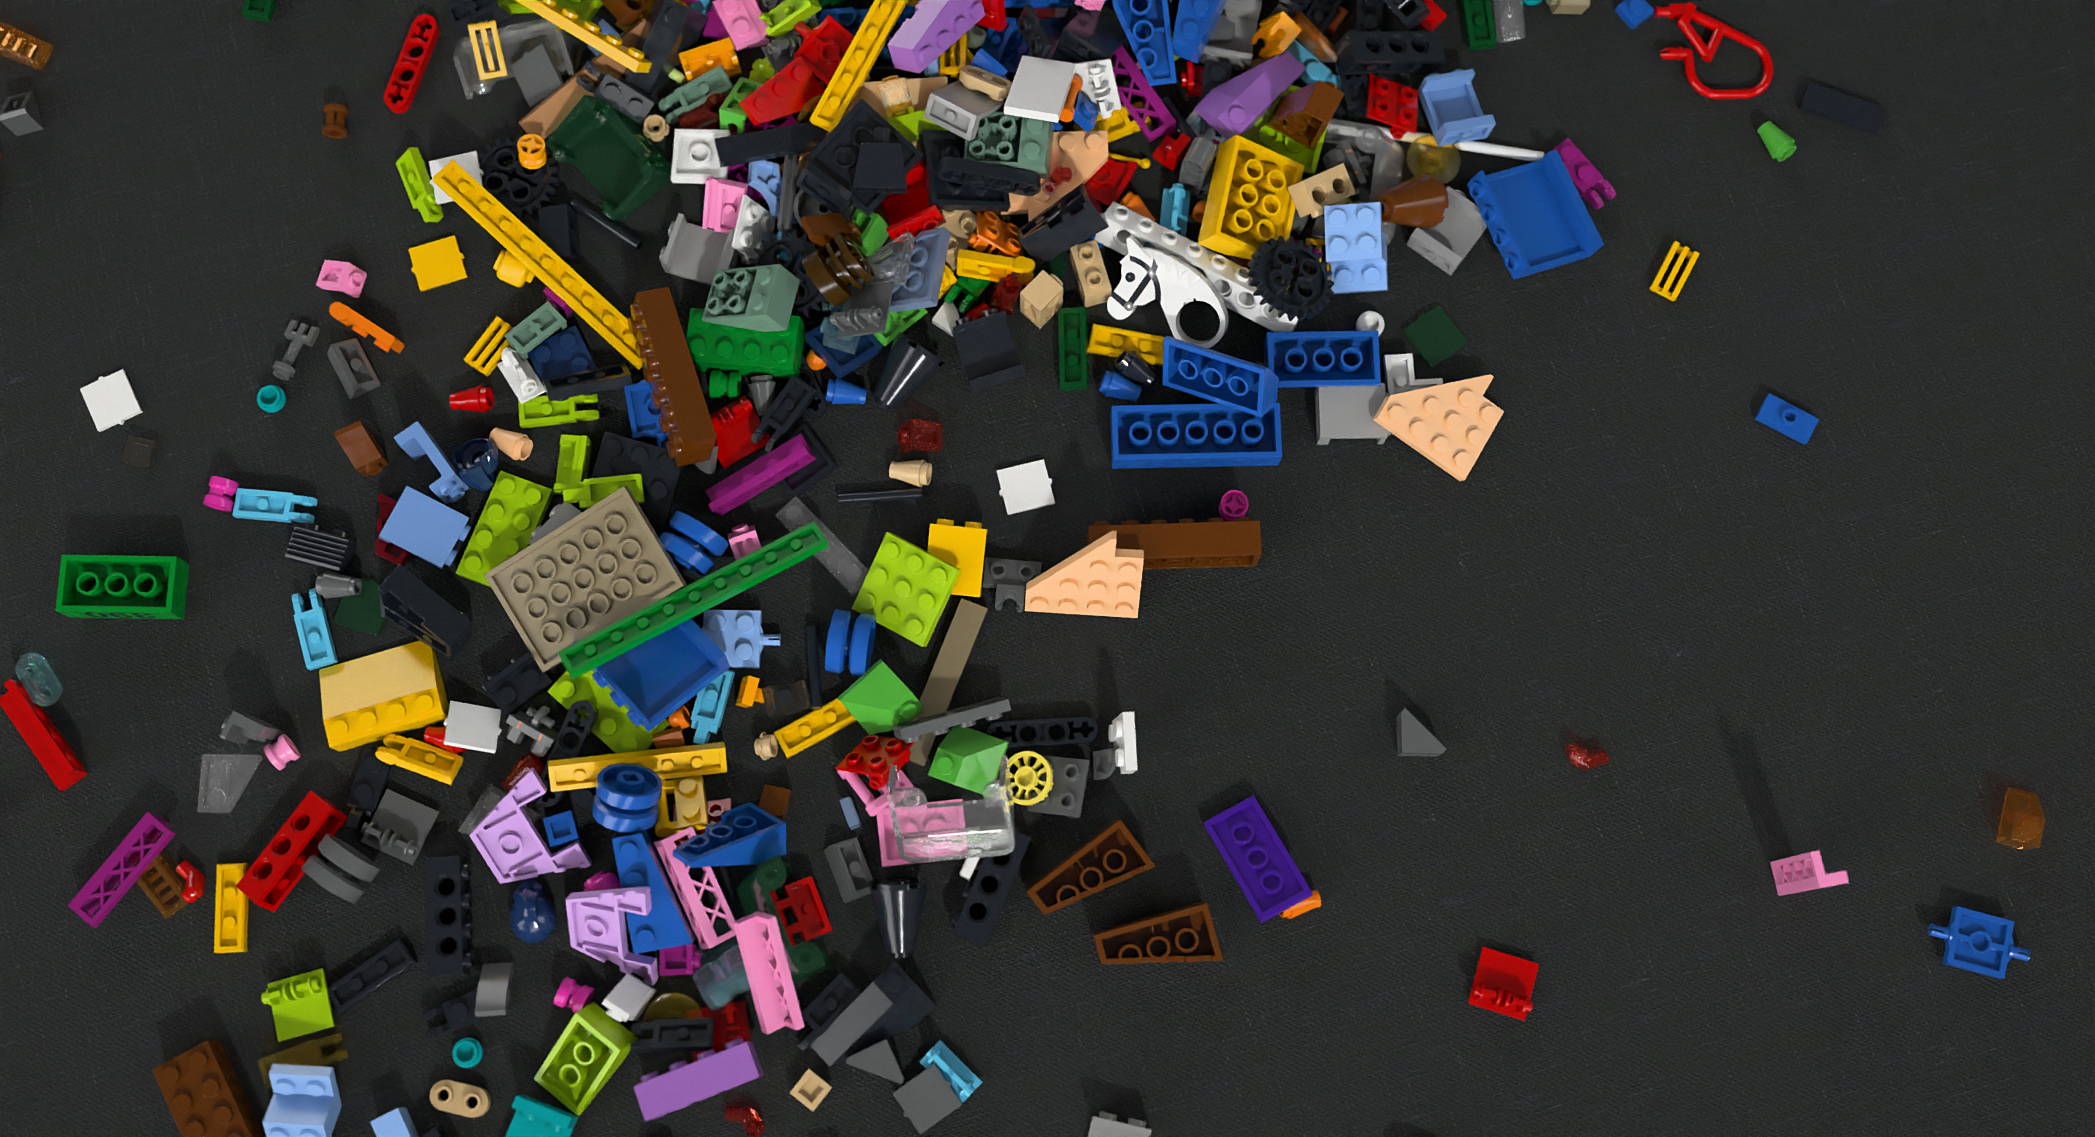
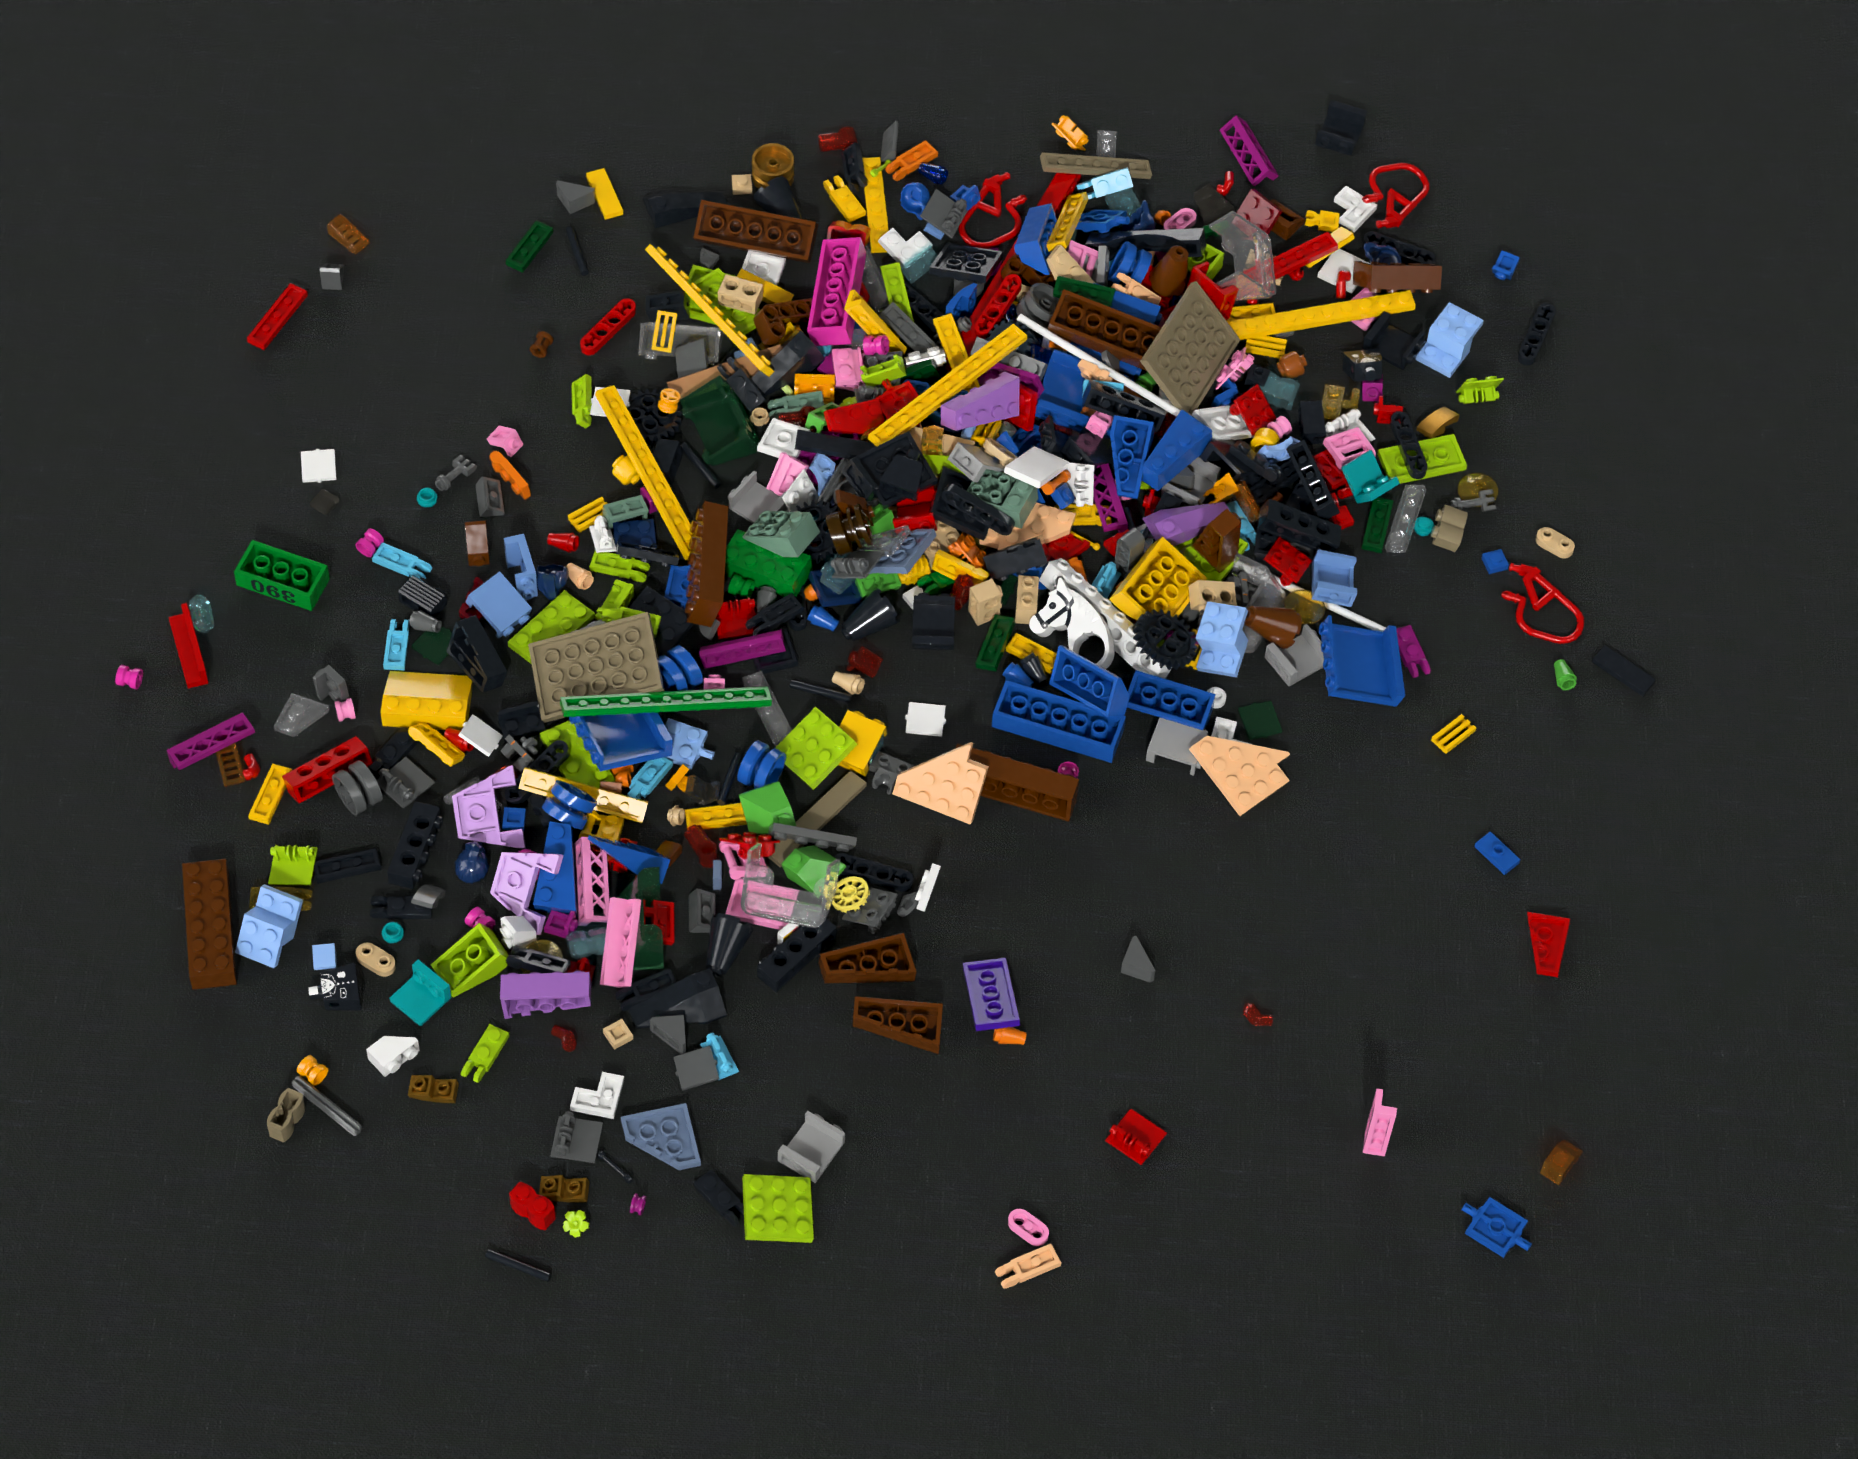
camera: 20 degrees right, 20 degrees down
(437, 263) = (574, 453): yellow piece -> none
(813, 776) = (702, 845): none -> clear red piece
(1056, 178) = (1026, 529): clear red arm -> none
(1894, 522) = (1548, 941): none -> red wing

